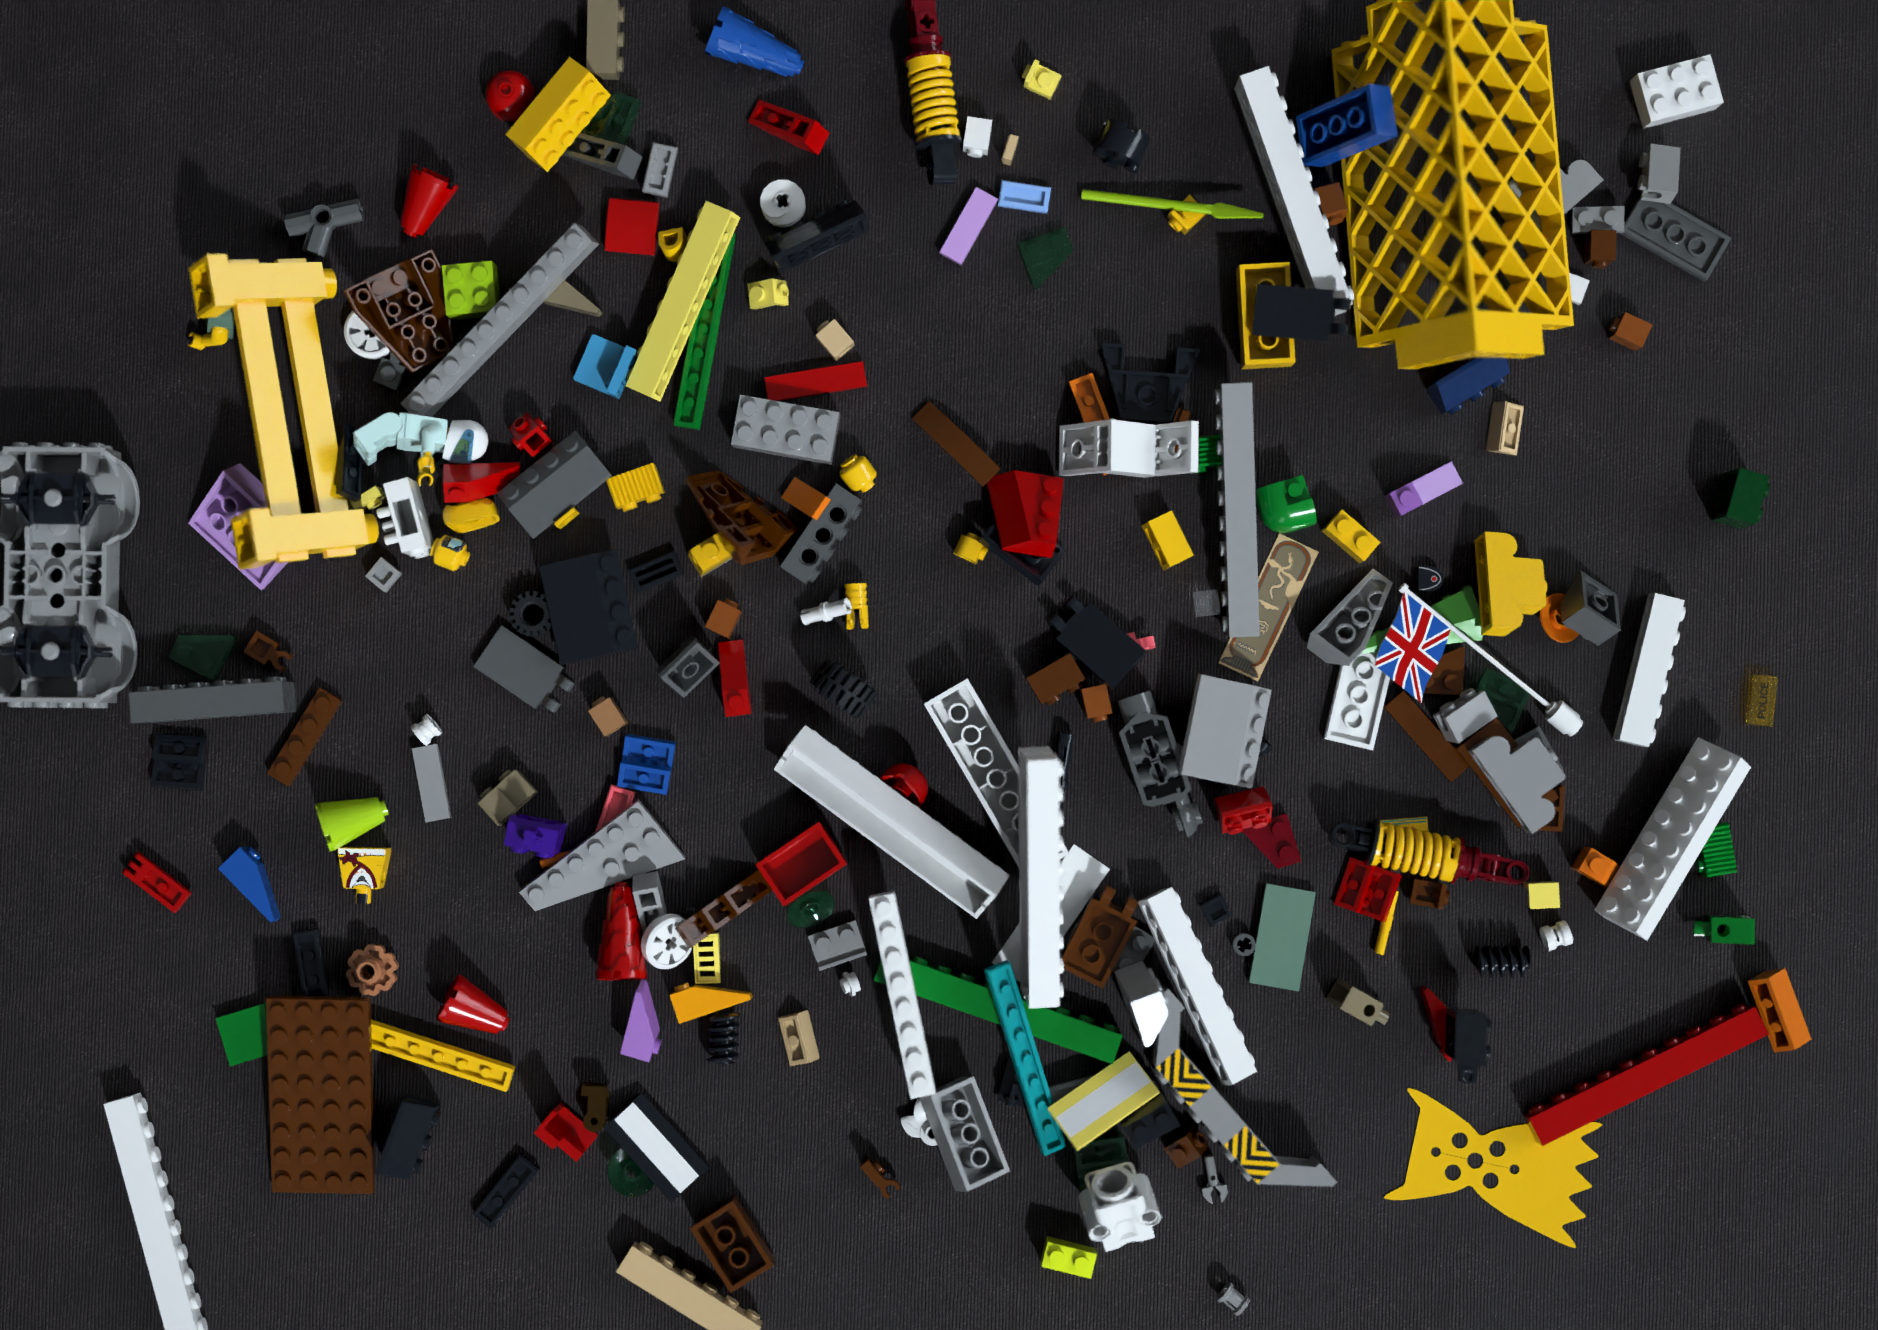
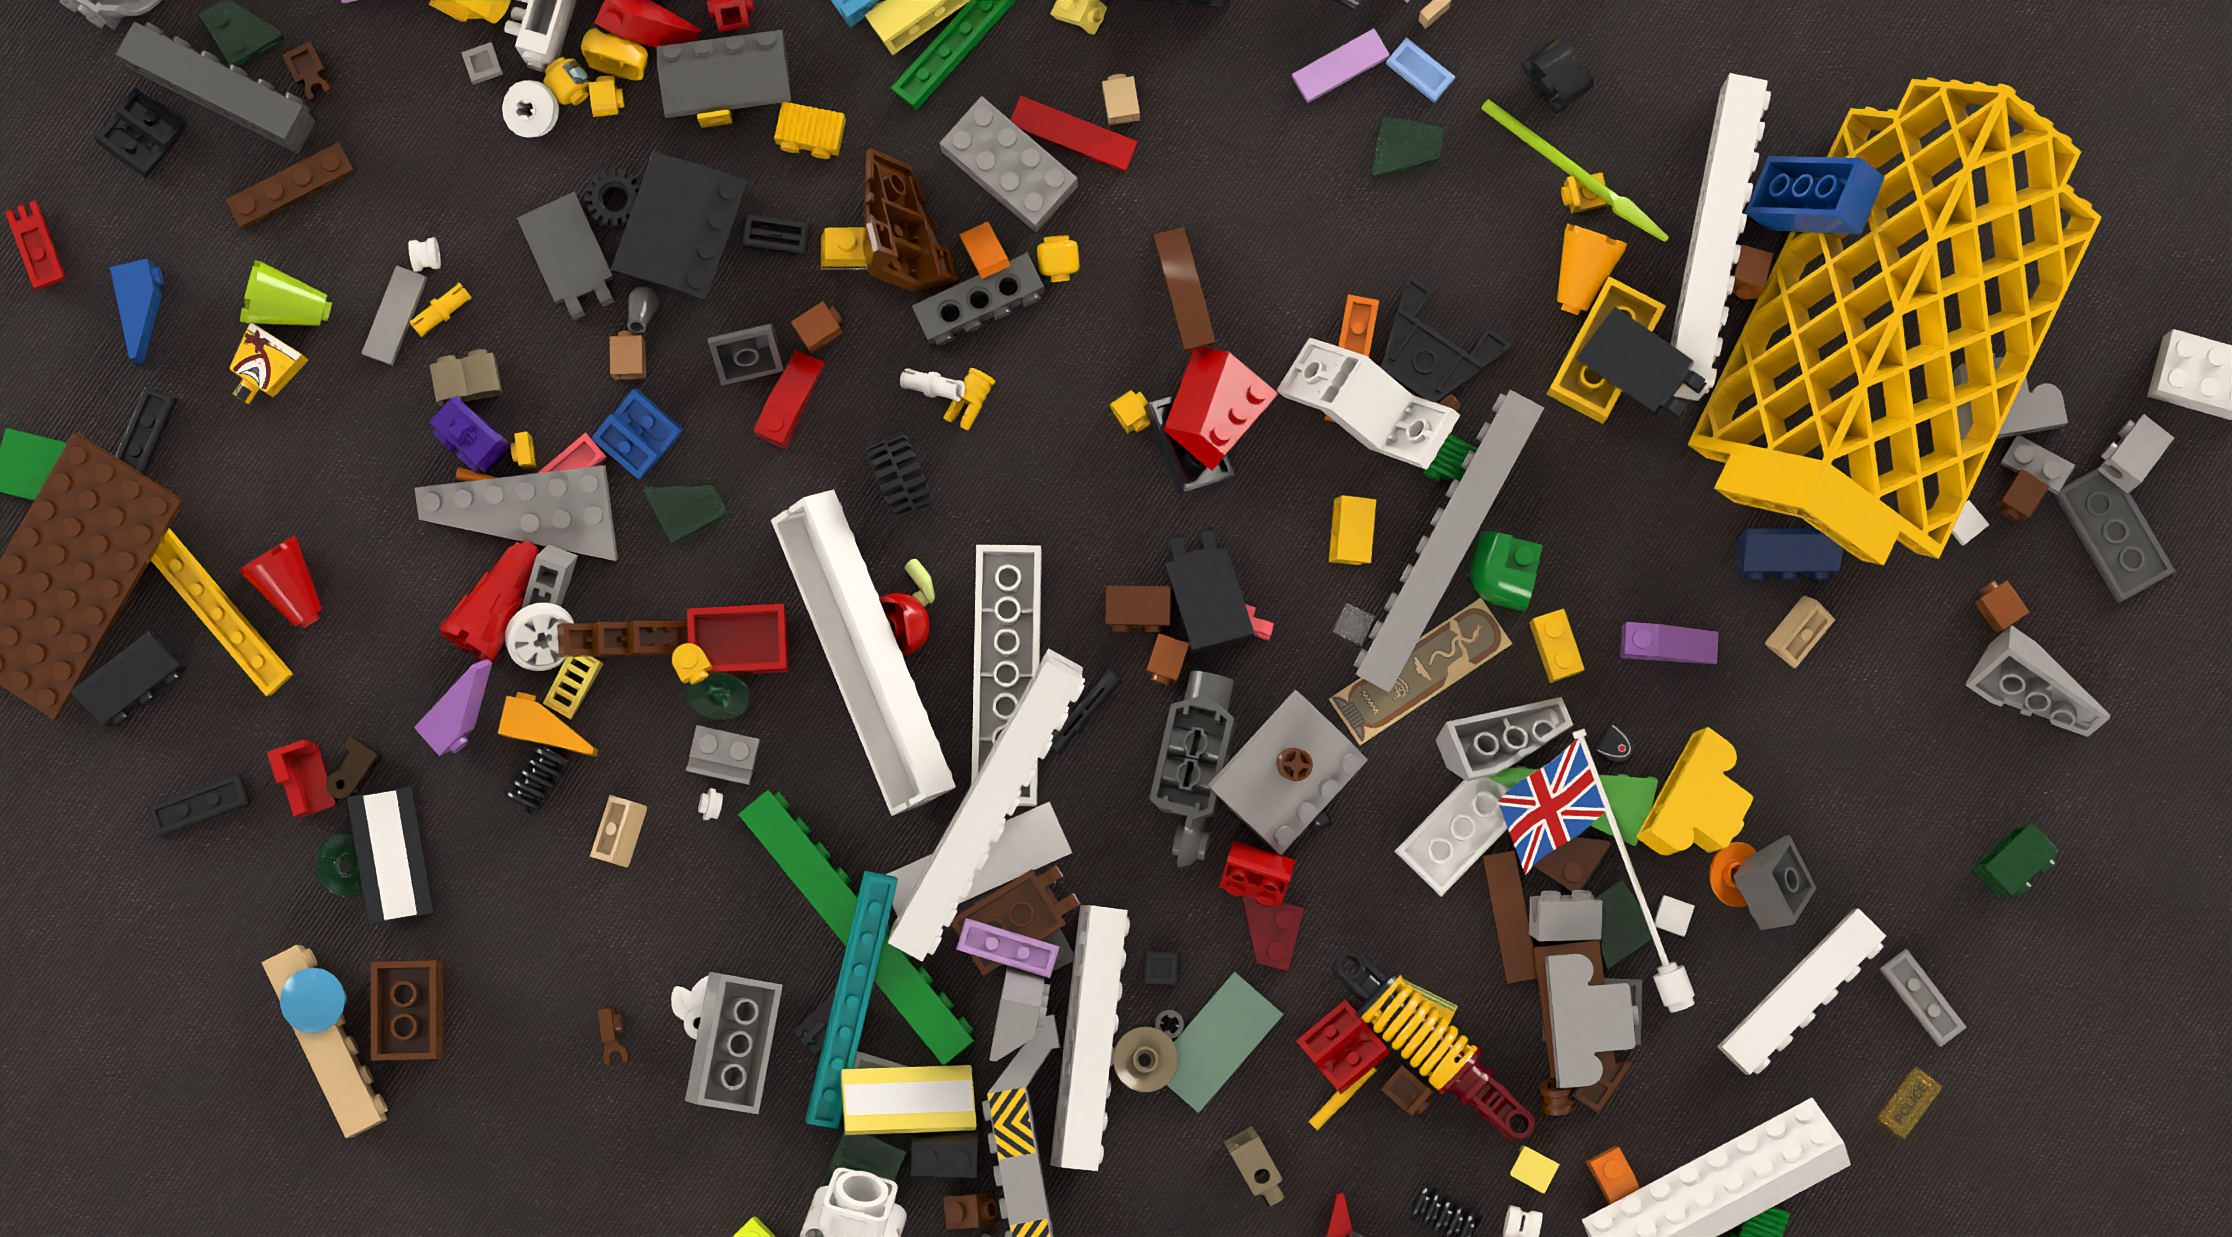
camera: 35 degrees right, 5 degrees down
(384, 967) = (219, 482): nougat plant -> none
(425, 590) = (544, 109): none -> white piece
(460, 760) = (440, 309): none -> yellow pin
(482, 547) = (605, 96): none -> yellow plate
(576, 822) = (523, 450): none -> yellow plate
(597, 678) = (641, 308): none -> dark grey cone
(666, 1276) = (312, 1000): none -> dark azure dish
(710, 795) = (685, 509): none -> clear green wing
(782, 900) = (691, 663): none -> yellow plate
(900, 747) = (923, 581): none -> yellowish green arm
(902, 994) = (759, 846): white brick -> none
(1108, 960) = (1008, 948): none -> lavender tile
(1218, 266) = (1585, 266): none -> light orange cone
(1234, 725) = (1301, 764): none -> reddish brown wheel
(1256, 978) = (1157, 1047): none -> dark tan dish
(1528, 842) = (1555, 1100): none -> reddish brown wheel
(1534, 670) = (1673, 915): none -> white tile
(1674, 369) = (2028, 678): none -> light grey wedge
(1729, 625) = (1922, 997): none -> light grey tile

